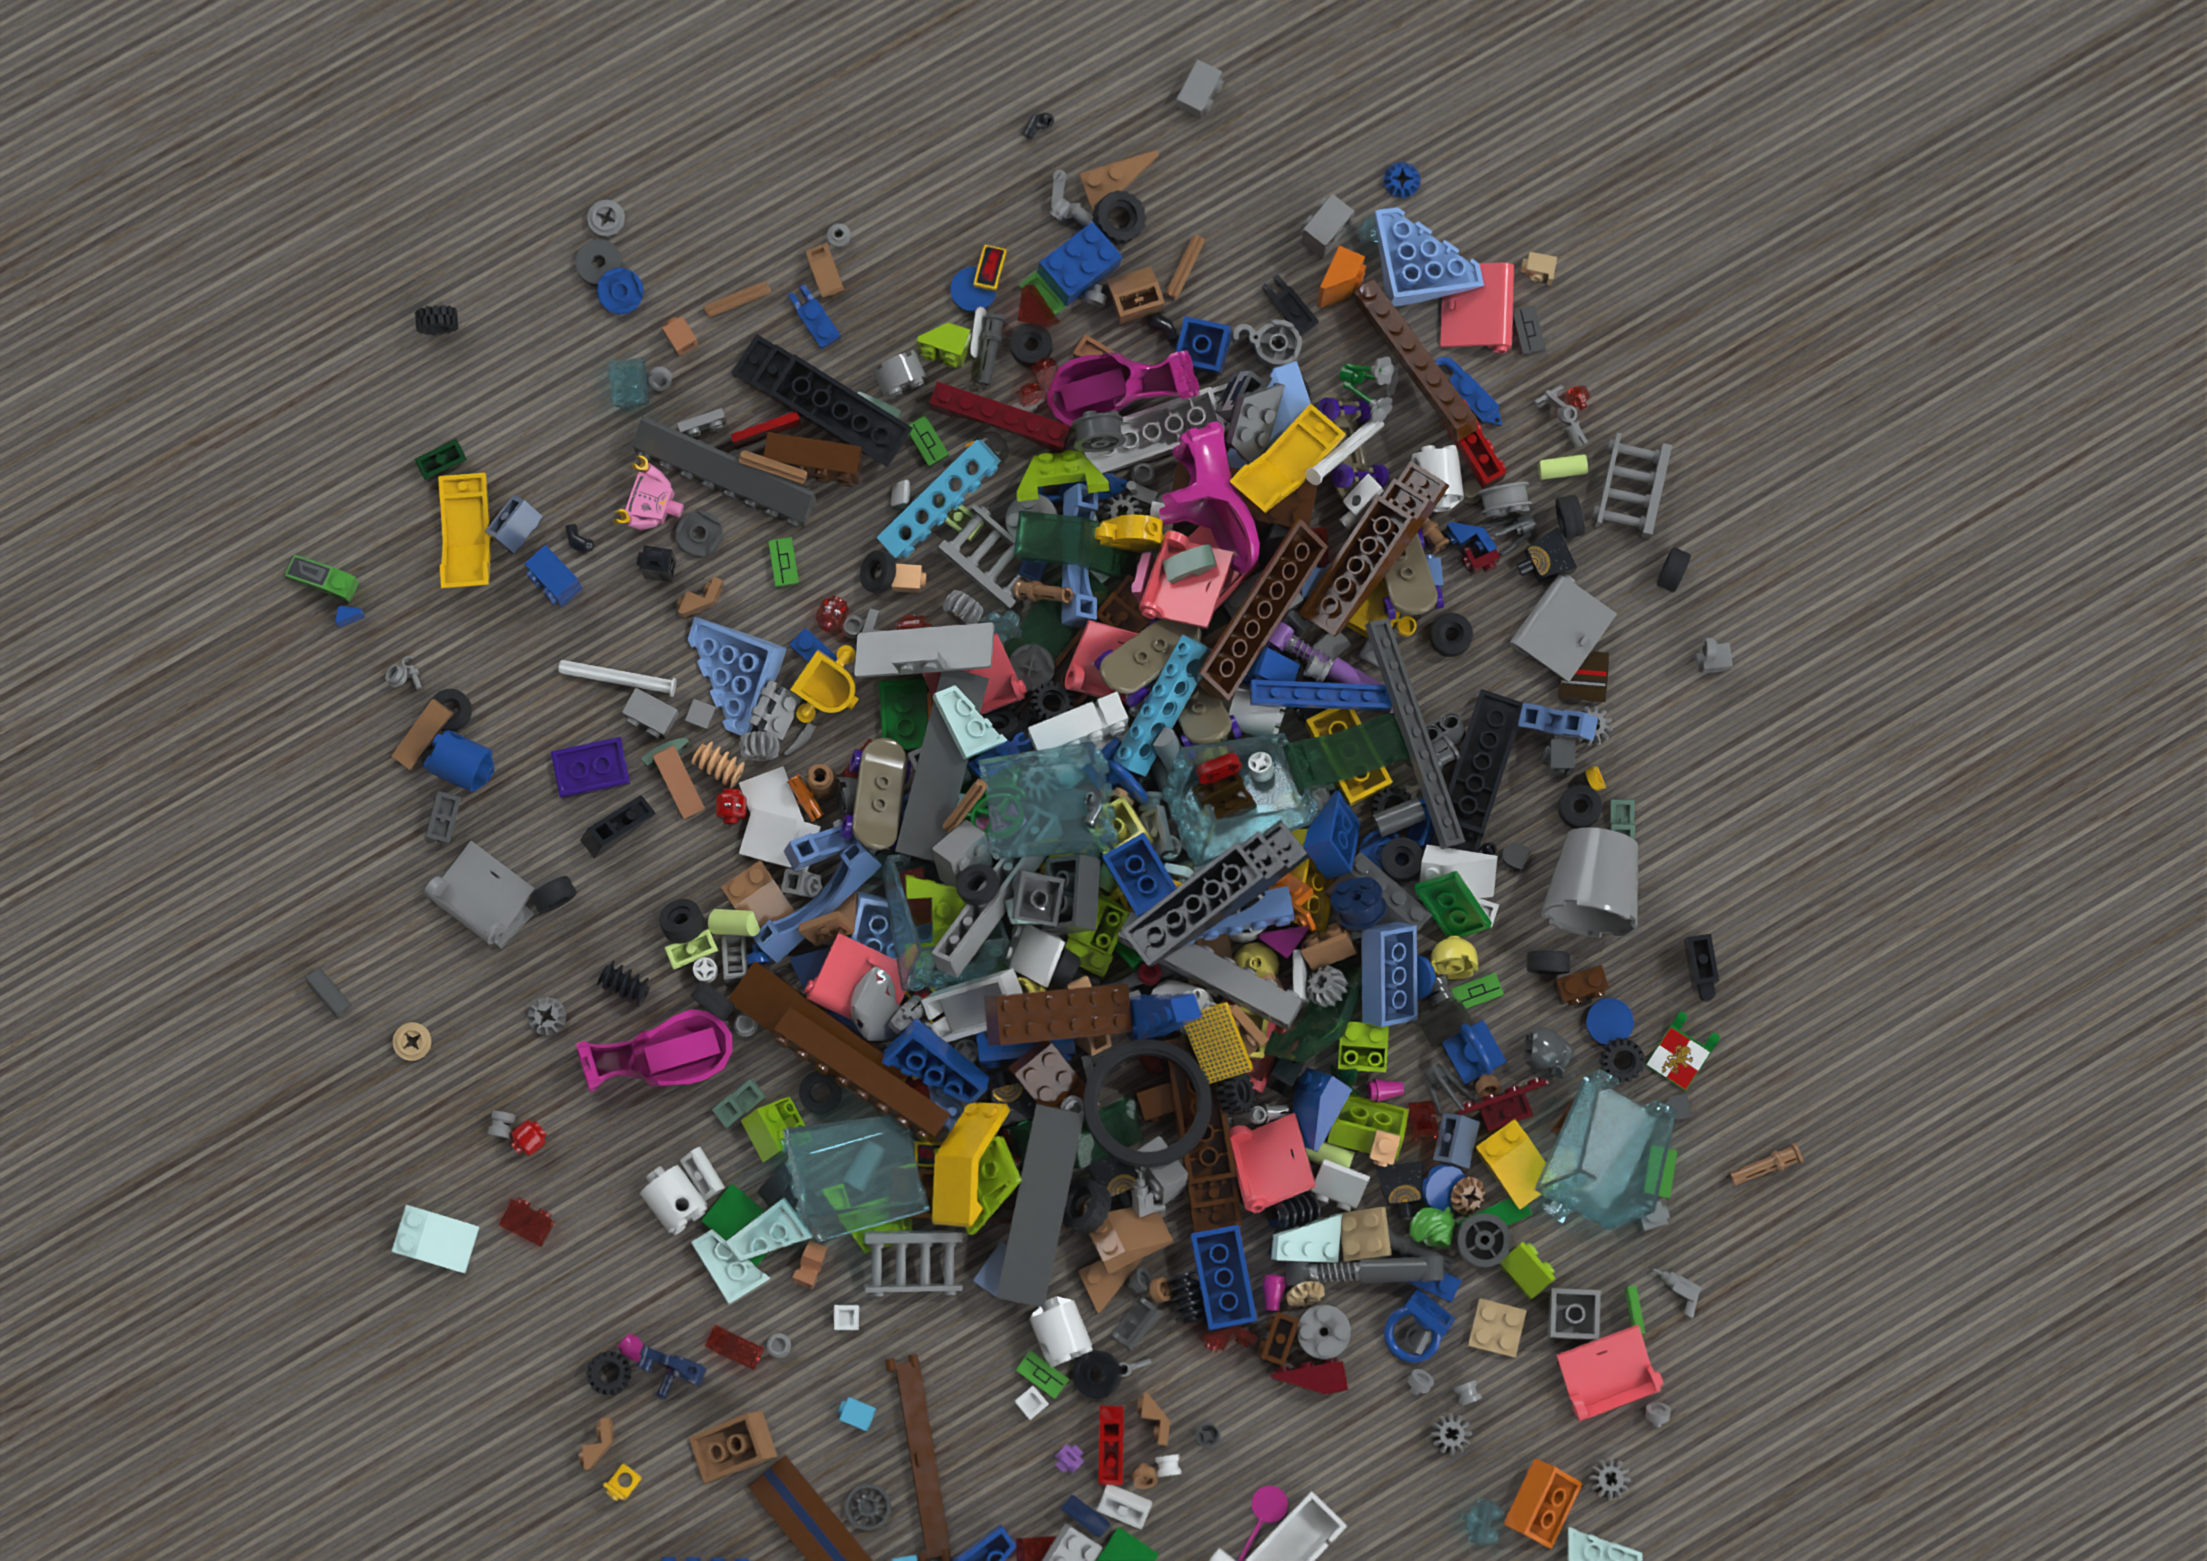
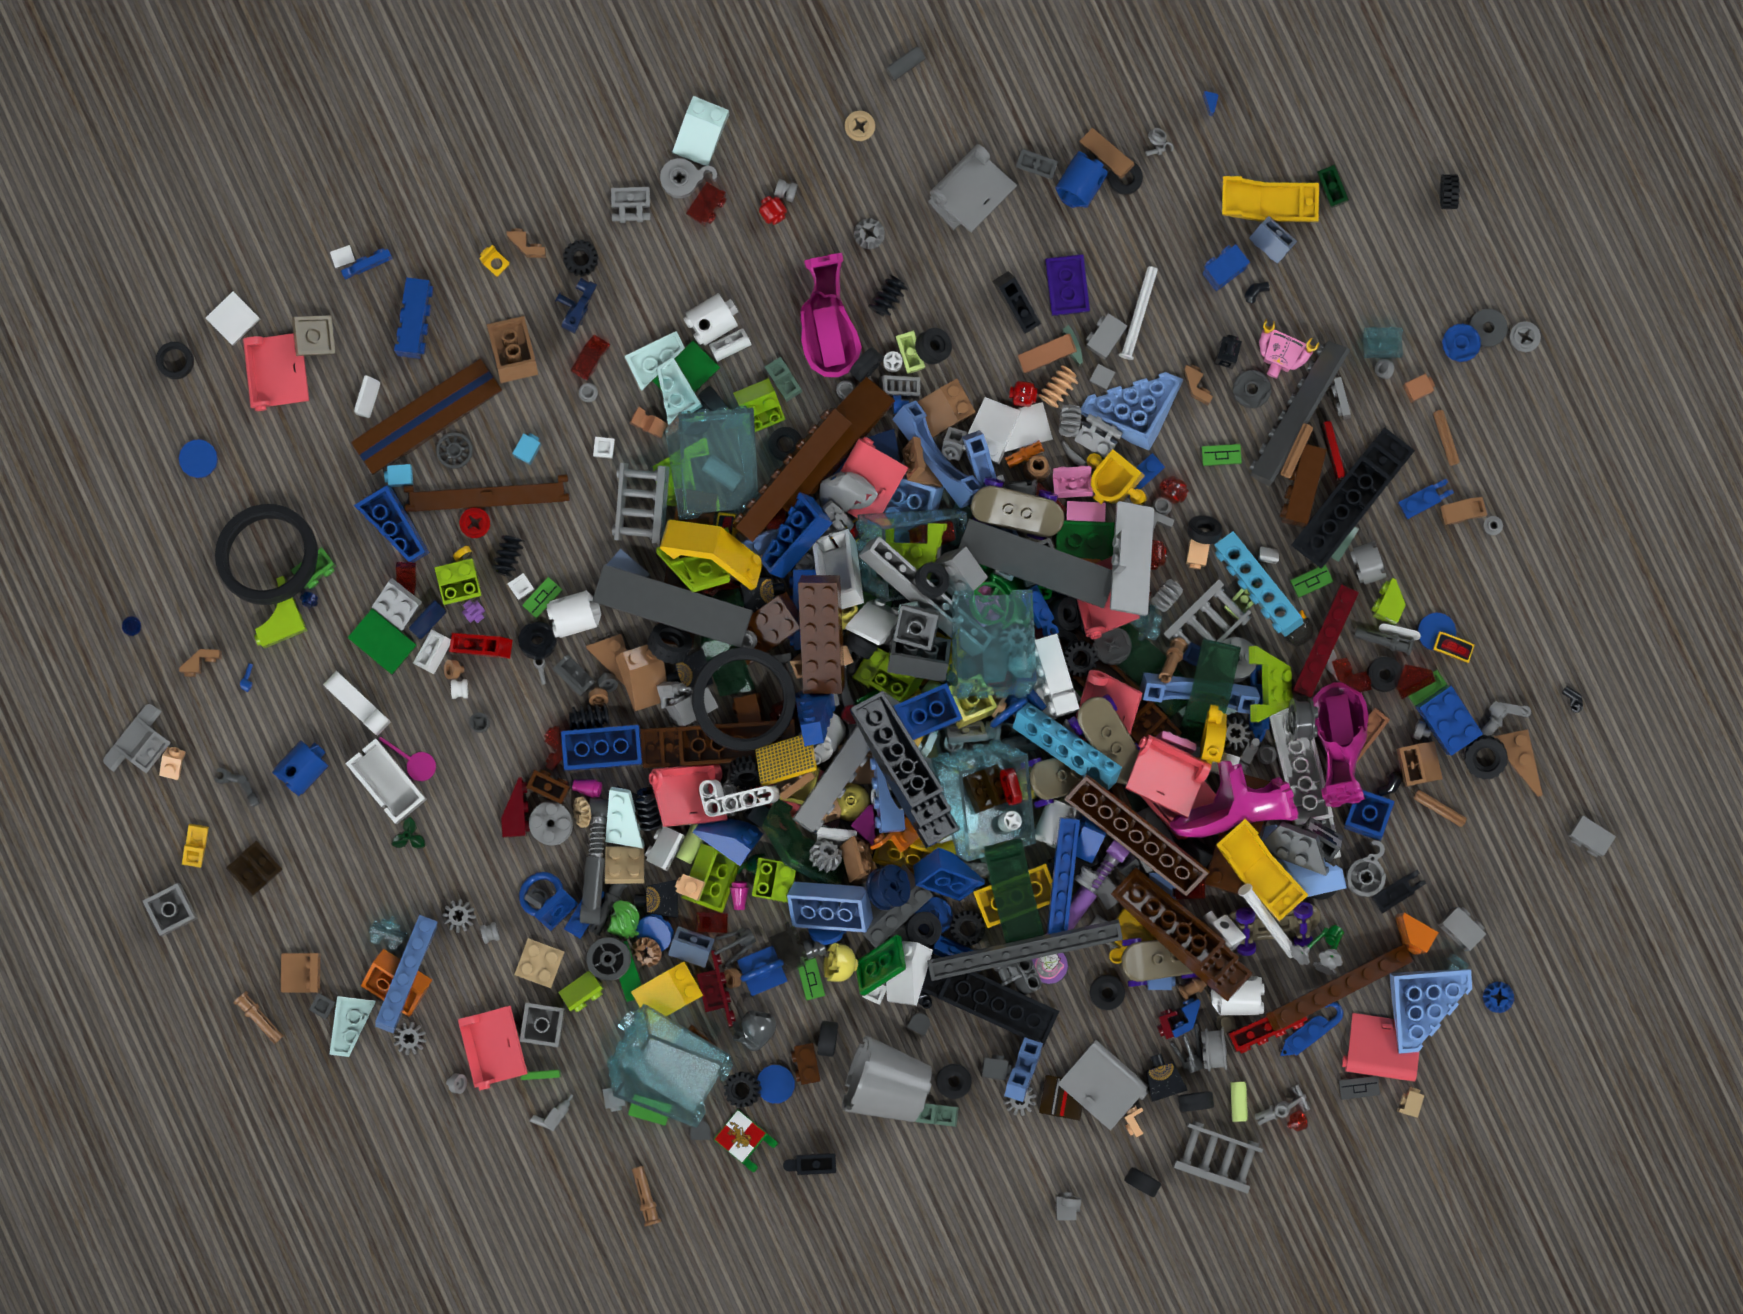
camera: 90 degrees right, 5 degrees up
(322, 578) = (1244, 84): bright green slope -> none
(491, 1245) = (688, 170): none -> light grey piece
(527, 1317) = (630, 198): none -> light grey plate
(553, 894) = (965, 246): black tyre -> none
(631, 1347) = (599, 277): dark pink cone -> none
(733, 922) = (927, 386): yellowish green brick -> none
(834, 736) = (1072, 481): none -> bright pink bracket
(868, 717) = (1085, 511): none -> bright pink tile
(957, 1458) = (465, 523): none -> red gear
(965, 805) = (997, 576): medium nougat axle -> none
(967, 727) = (1065, 585): light aqua wing -> none
(995, 1423) = (507, 555): none -> black piece
(998, 1481) = (462, 554): none -> yellow tile
(1035, 1481) = (458, 581): none -> lime slope
(1093, 806) = (987, 681): dark grey arm -> none
(1151, 1411) = (503, 680): medium nougat slope -> none
(1167, 747) = (1032, 746): light grey brick -> none
(1189, 562) = (1182, 779): sand green slope -> none
(1269, 1095) = (740, 798): none -> white beam
(1364, 1518) = (401, 840): none -> dark green plant
(1399, 817) = (958, 930): dark grey brick -> none
(1420, 1382) = (503, 896): light grey tile -> none
(1431, 701) = (1051, 968): none -> tile
(1533, 1489) = (405, 974): none -> medium blue arch
(1595, 778) = (976, 1096): yellow tile -> none
(1607, 589) = (1132, 1126): none -> light nougat bracket

